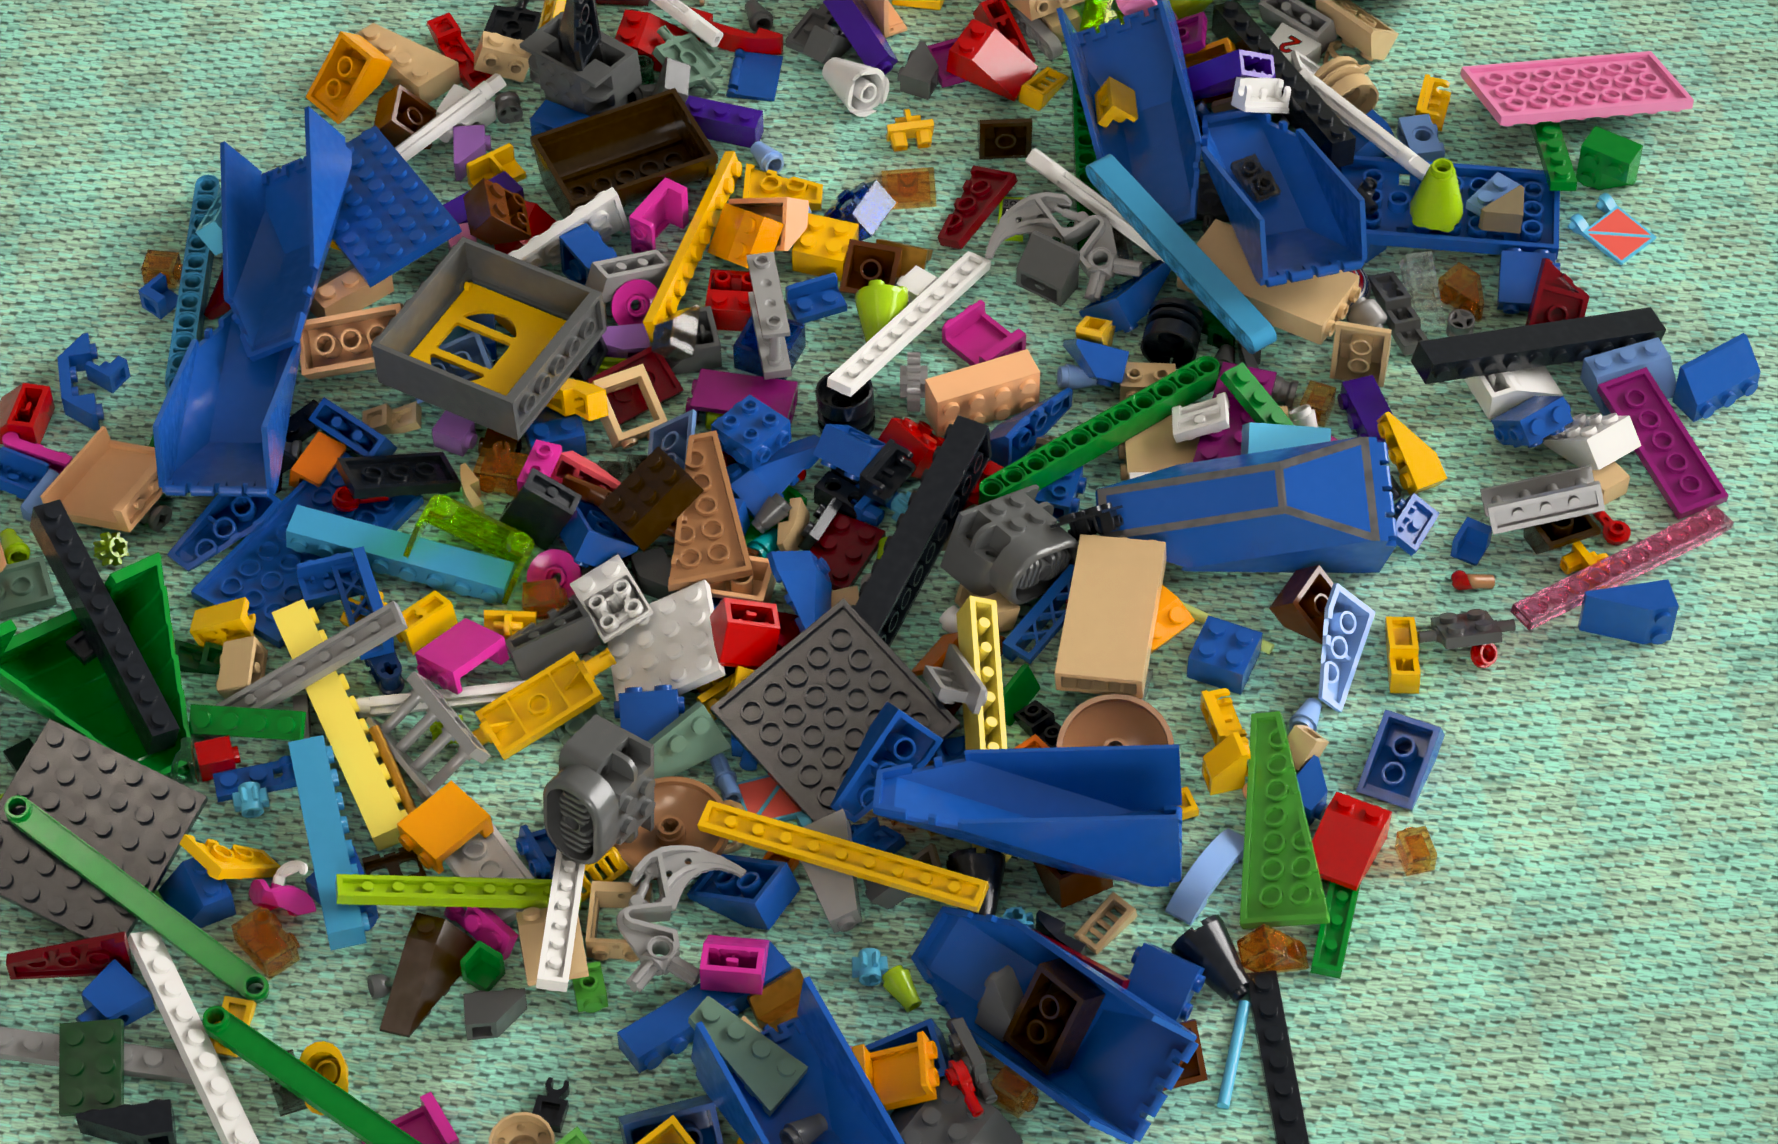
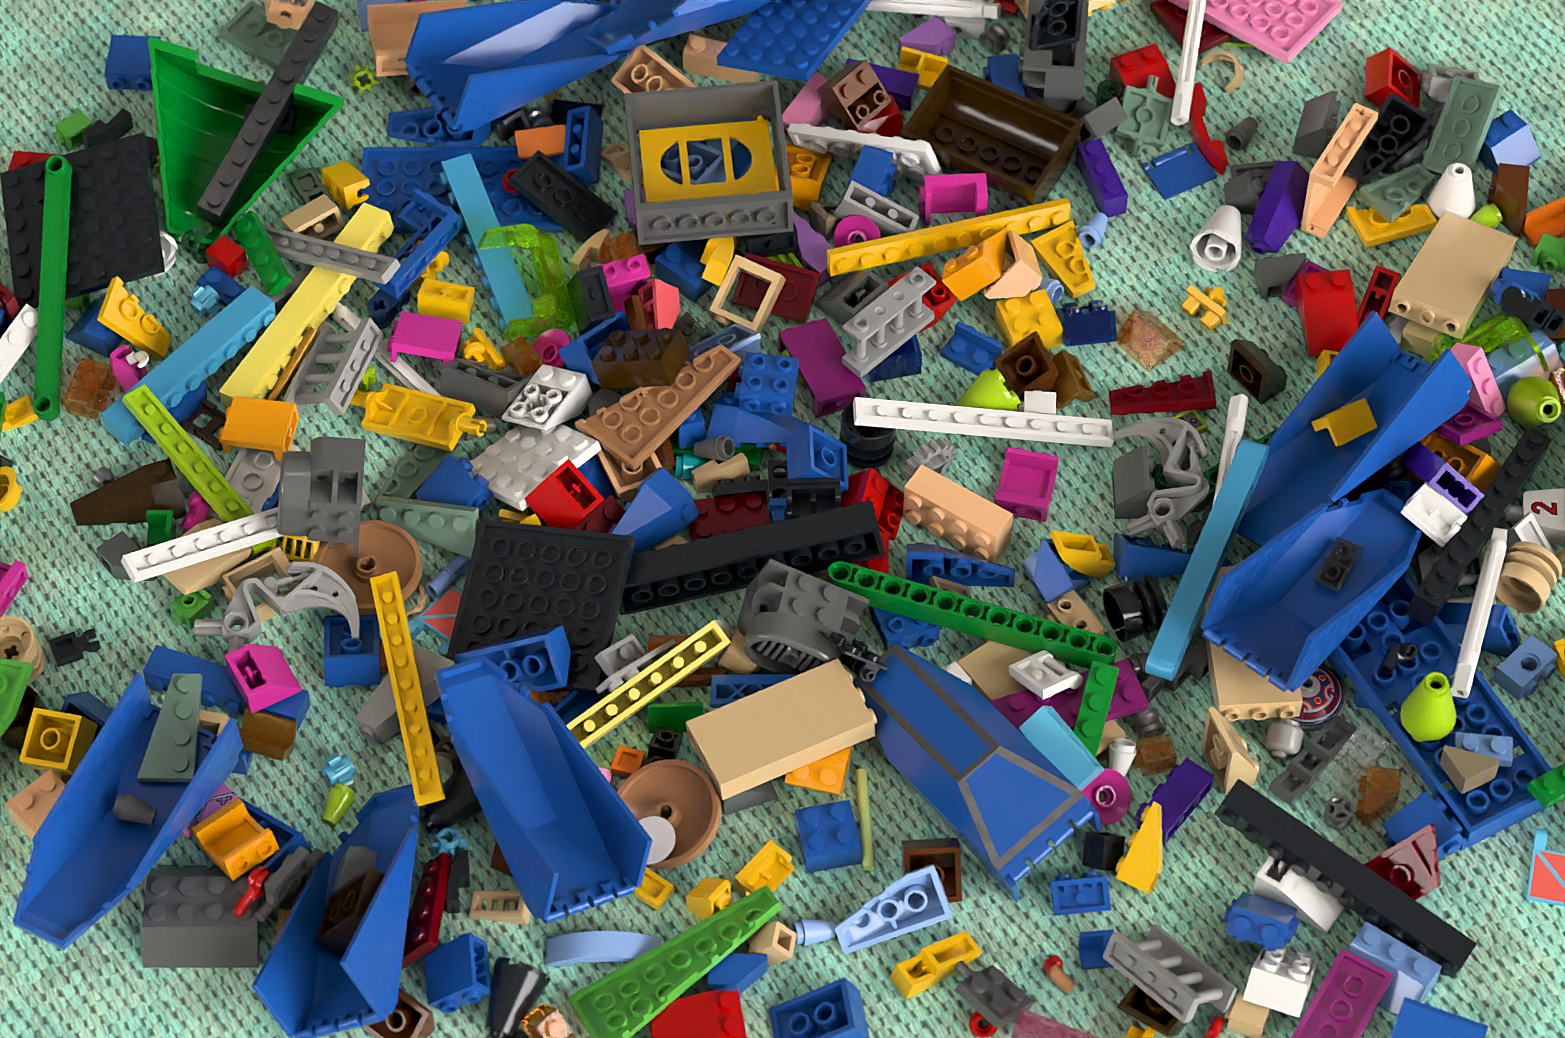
camera: 55 degrees right, 5 degrees up
(677, 334) = (836, 278): clear smoke slope -> none

